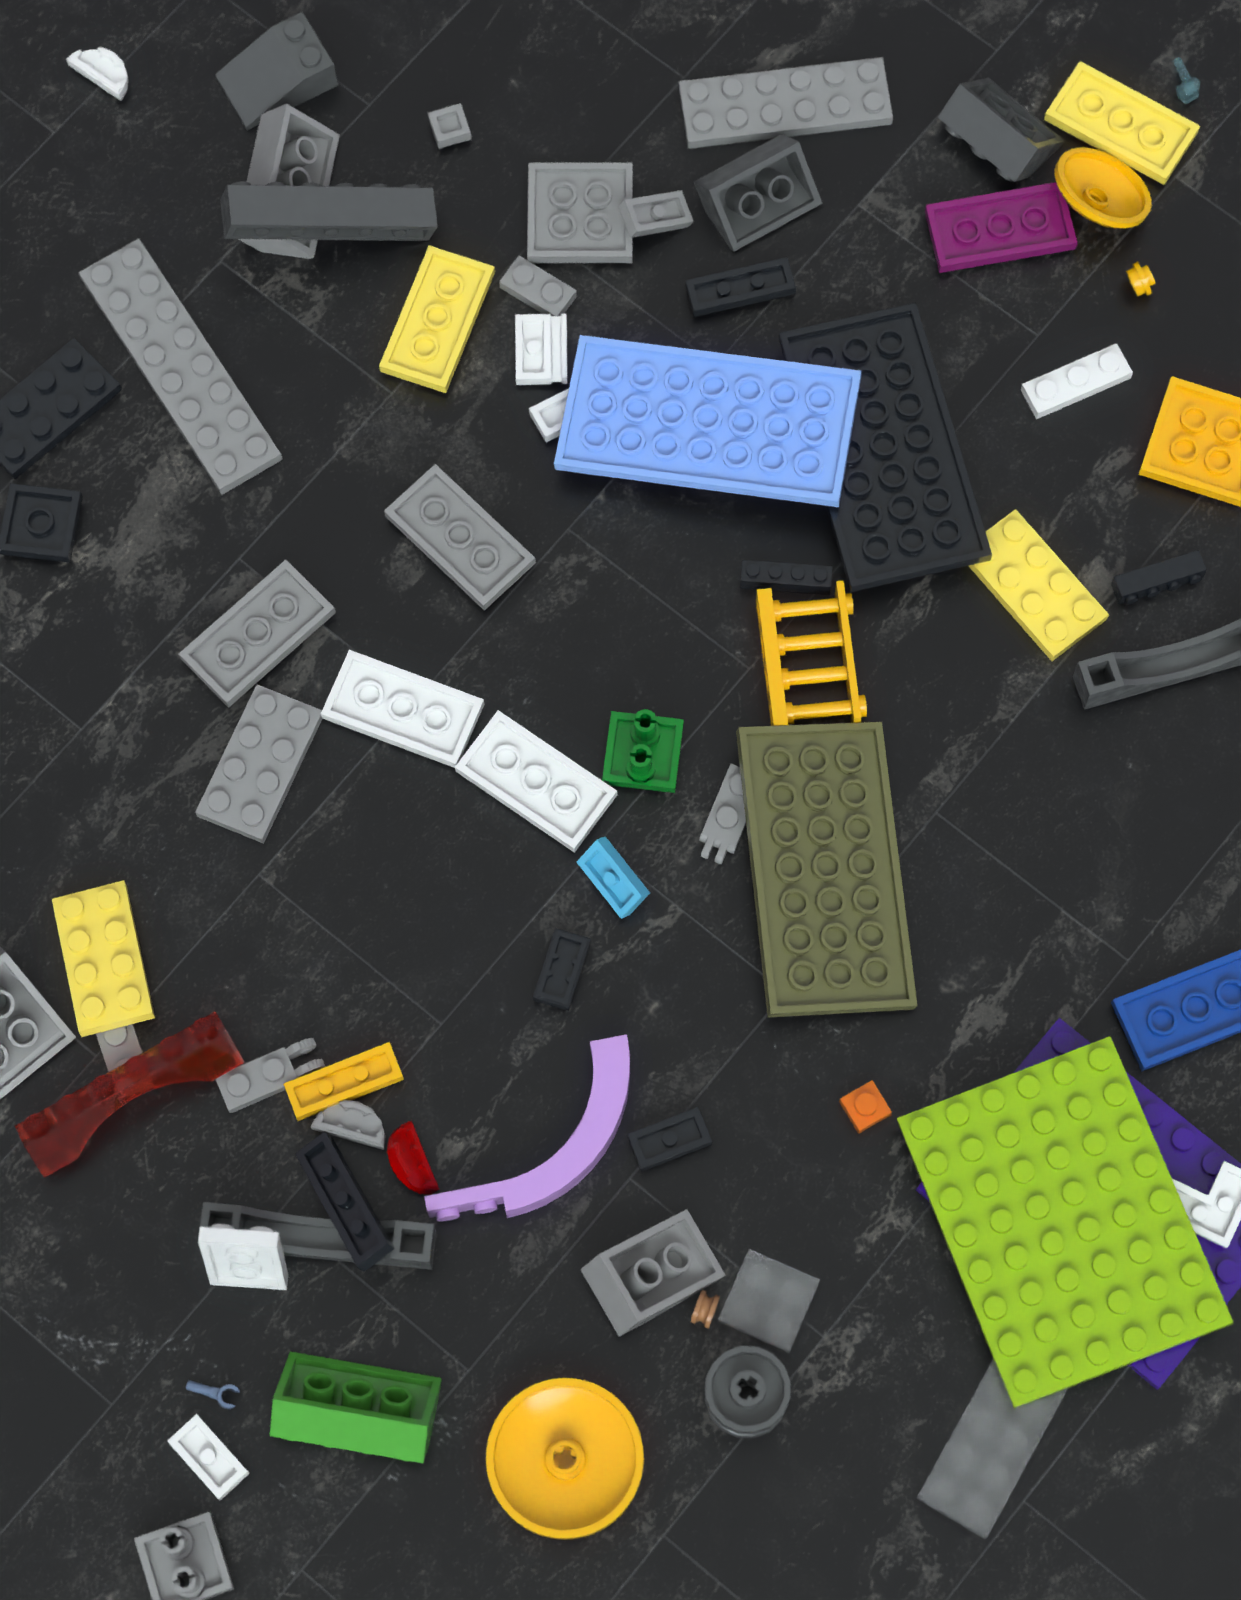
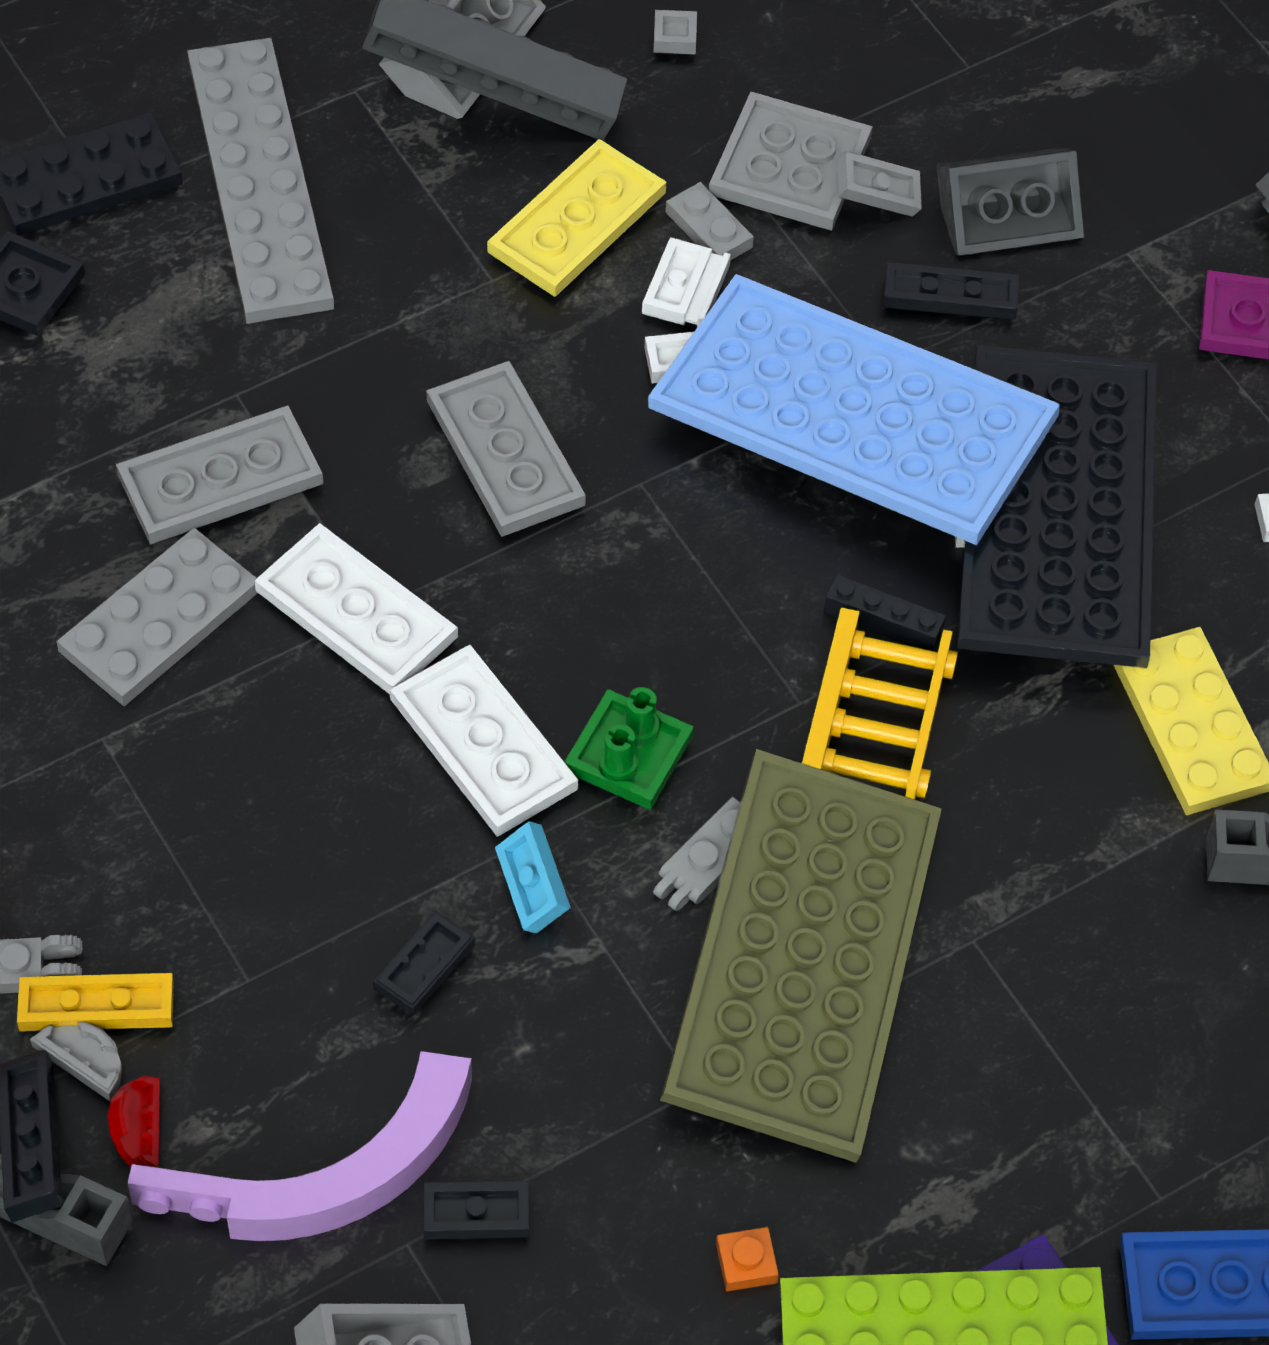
camera: 15 degrees right, 15 degrees down
(785, 102) = (1098, 124): light grey plate -> none

